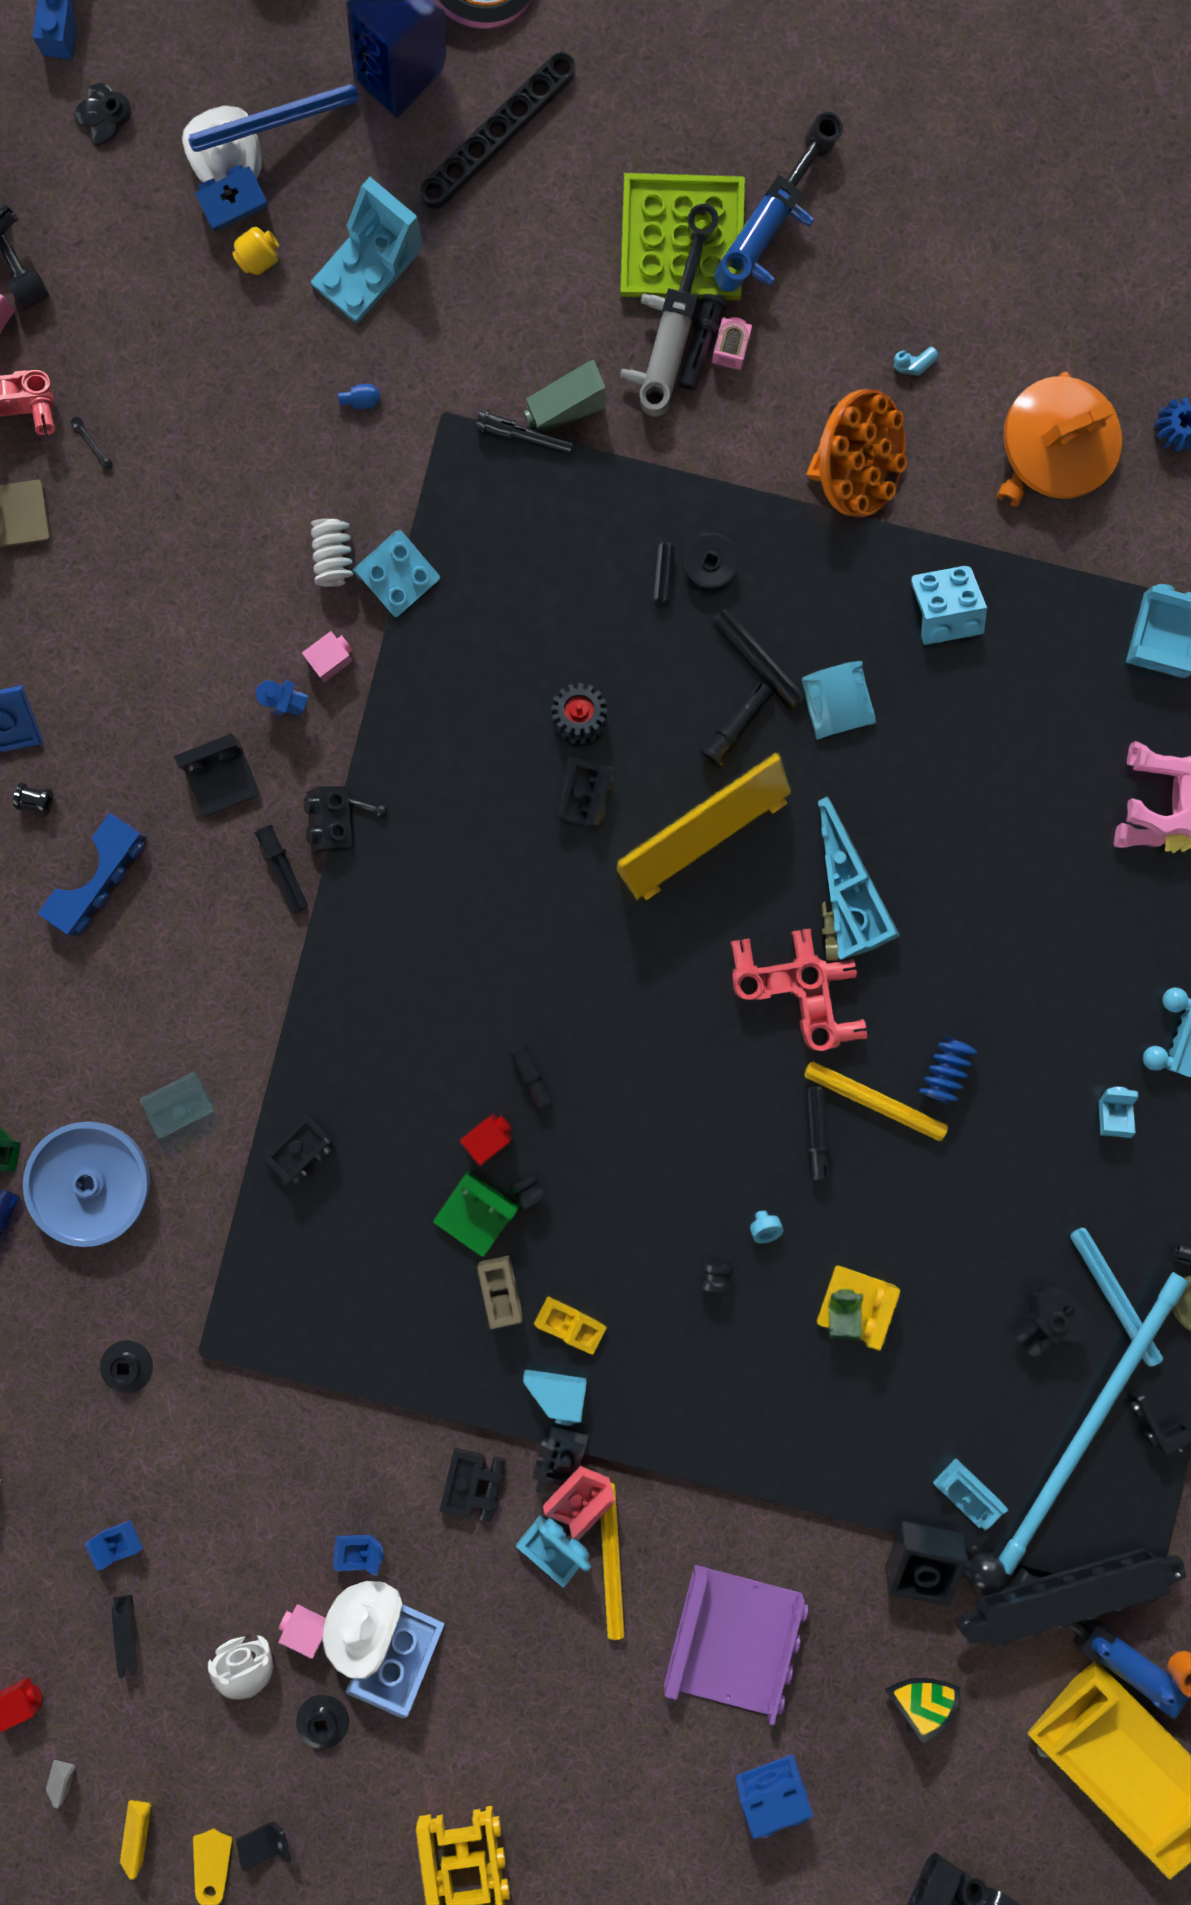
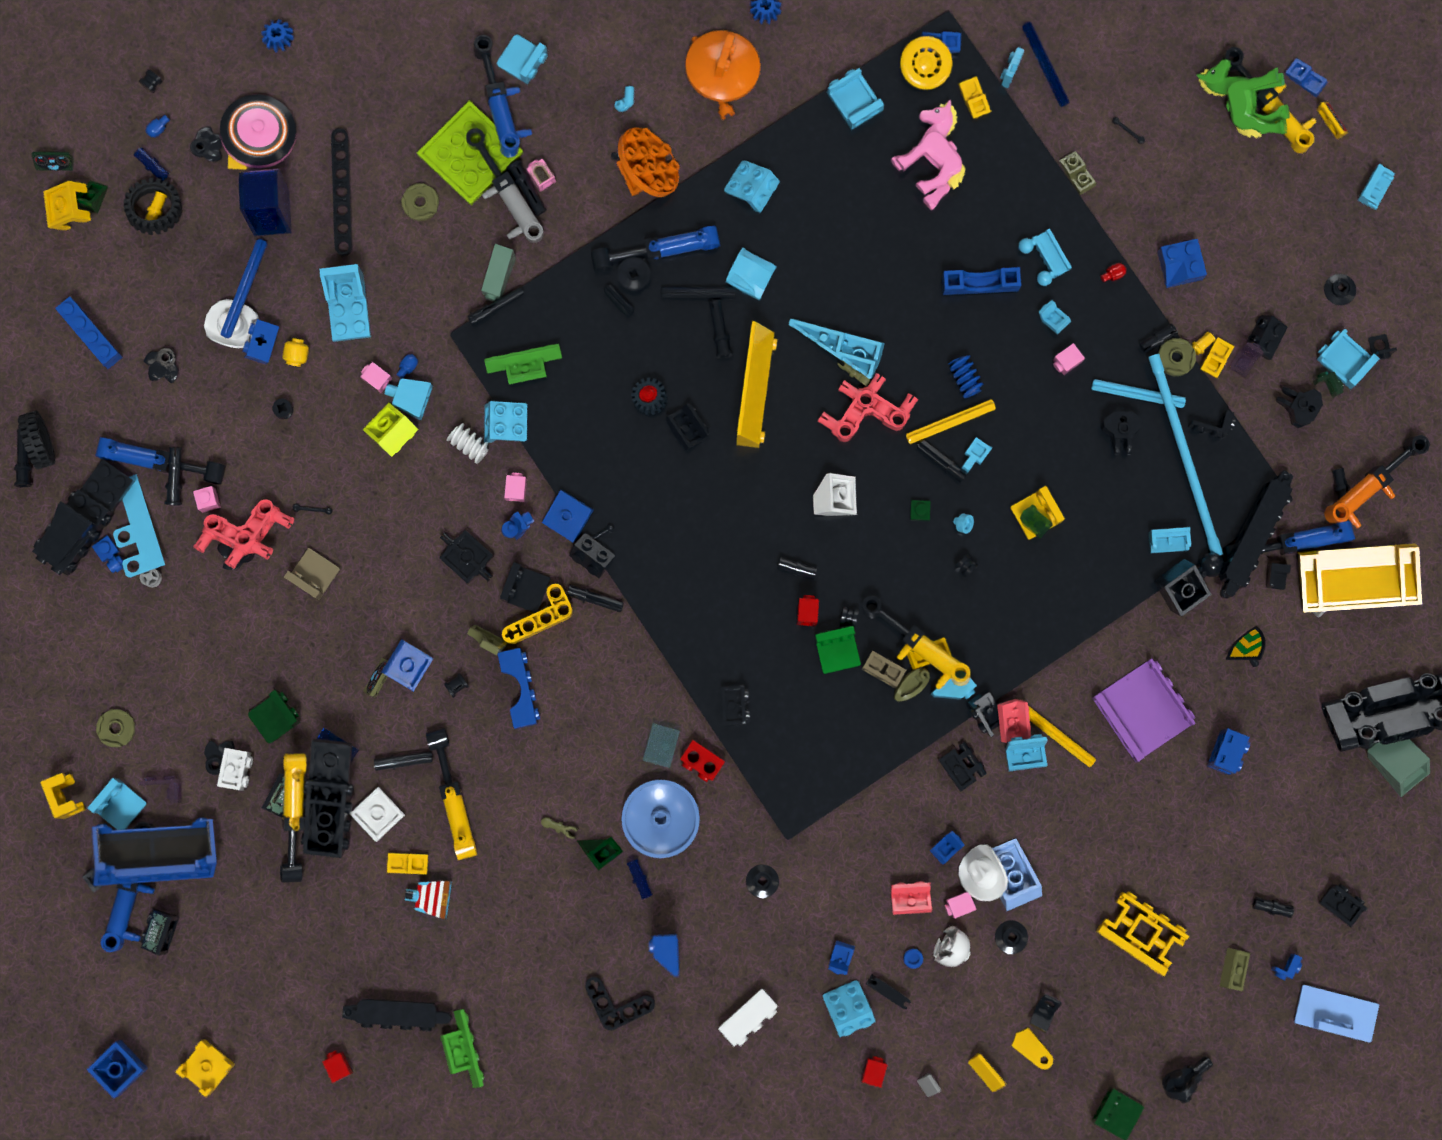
camera: 45 degrees left, 5 degrees down
(64, 1604) = (848, 1008): none -> medium azure bracket
(115, 790) = (487, 640): none -> olive tile
(183, 301) = (286, 411): none -> black wheel
(192, 1628) = (913, 958): none -> blue tile
(194, 823) = (535, 618): none -> yellow beam
(195, 673) = (466, 557): none -> black plate
(209, 1169) = (705, 756): none -> red brick
(259, 1565) = (911, 898): none -> coral bracket
(264, 446) = (390, 429): none -> neon yellow slope
(311, 372) = (375, 377): none -> bright pink brick
(325, 433) = (410, 396): none -> medium azure torso
(349, 747) = (567, 516): none -> blue plate
(483, 531) = (524, 364): none -> bright green bracket
(515, 1340) = (911, 684): none -> olive arm
(569, 1316) = (917, 641): none -> yellow piece
(573, 250) = (428, 209): none -> olive tile
(660, 1045) = (835, 496): none -> white slope
(734, 1160) = (920, 510): none -> dark green plate
(764, 559) = (704, 239): none -> piece
(853, 194) = (522, 58): none -> medium azure bracket
(866, 1167) = (976, 452): none -> medium azure plate
(1043, 1659) = (1277, 576): none -> black panel
(1063, 968) = (989, 282): none -> blue arch
(1081, 1175) = (1068, 359): none -> bright pink brick

